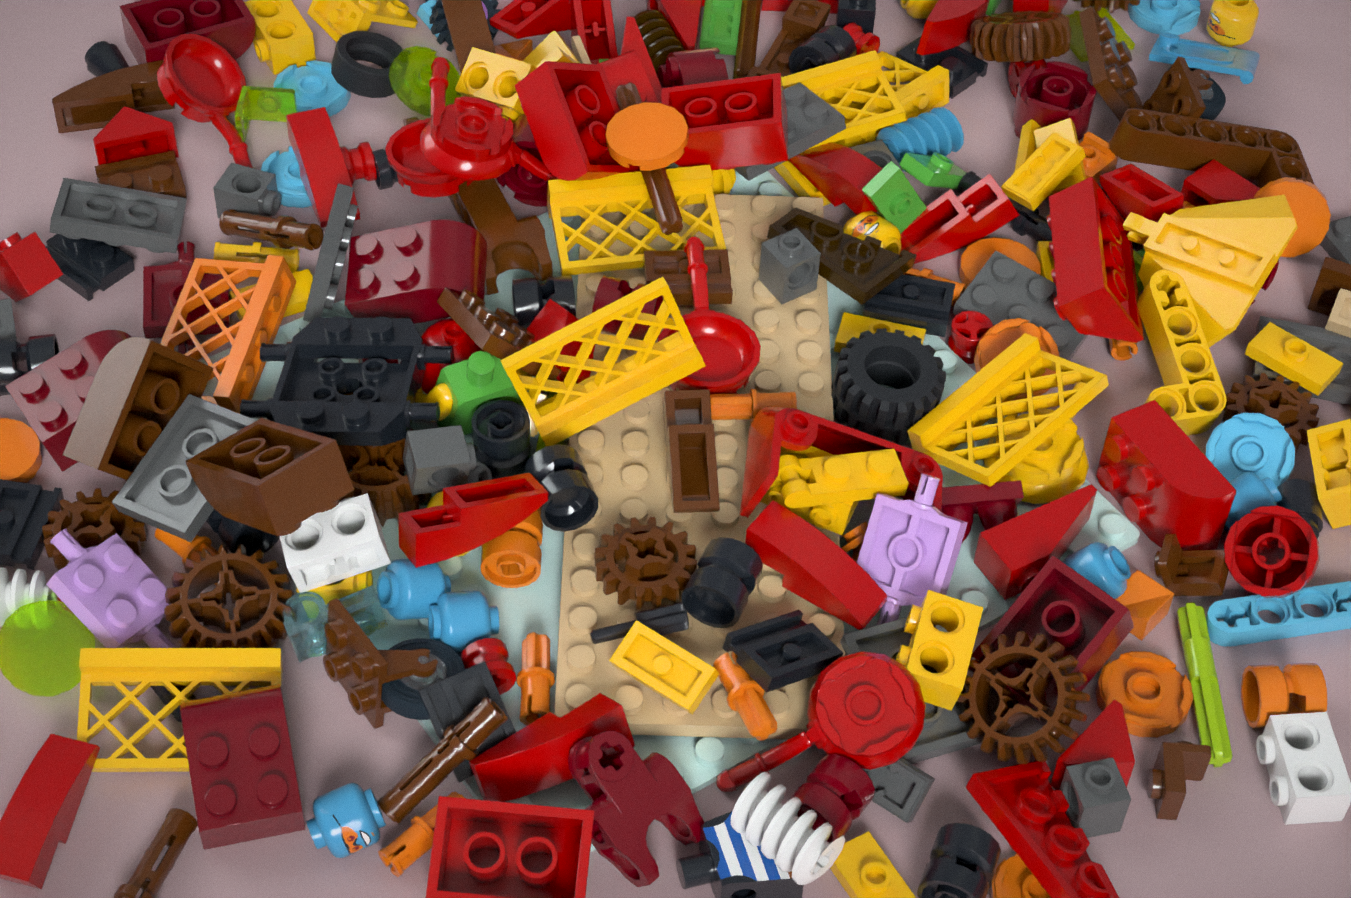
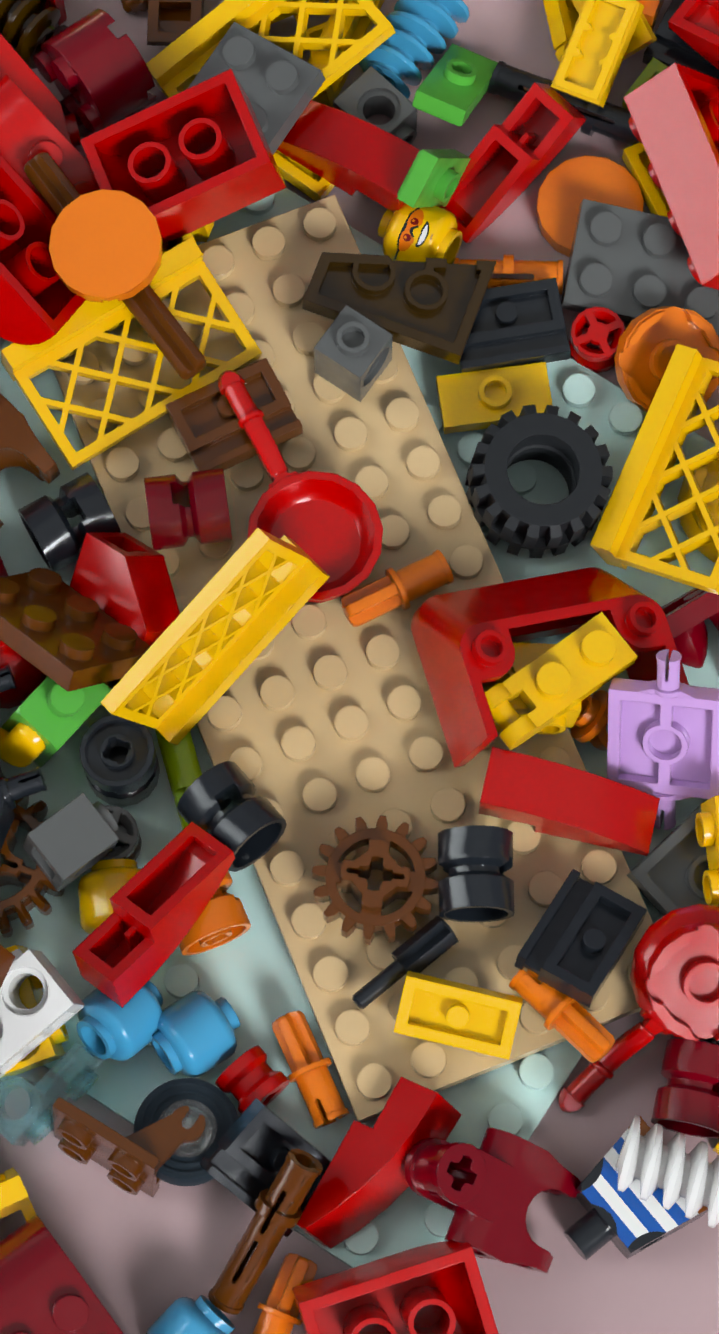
camera: 20 degrees left, 25 degrees up
(691, 451) = (357, 695): reddish brown slope -> none

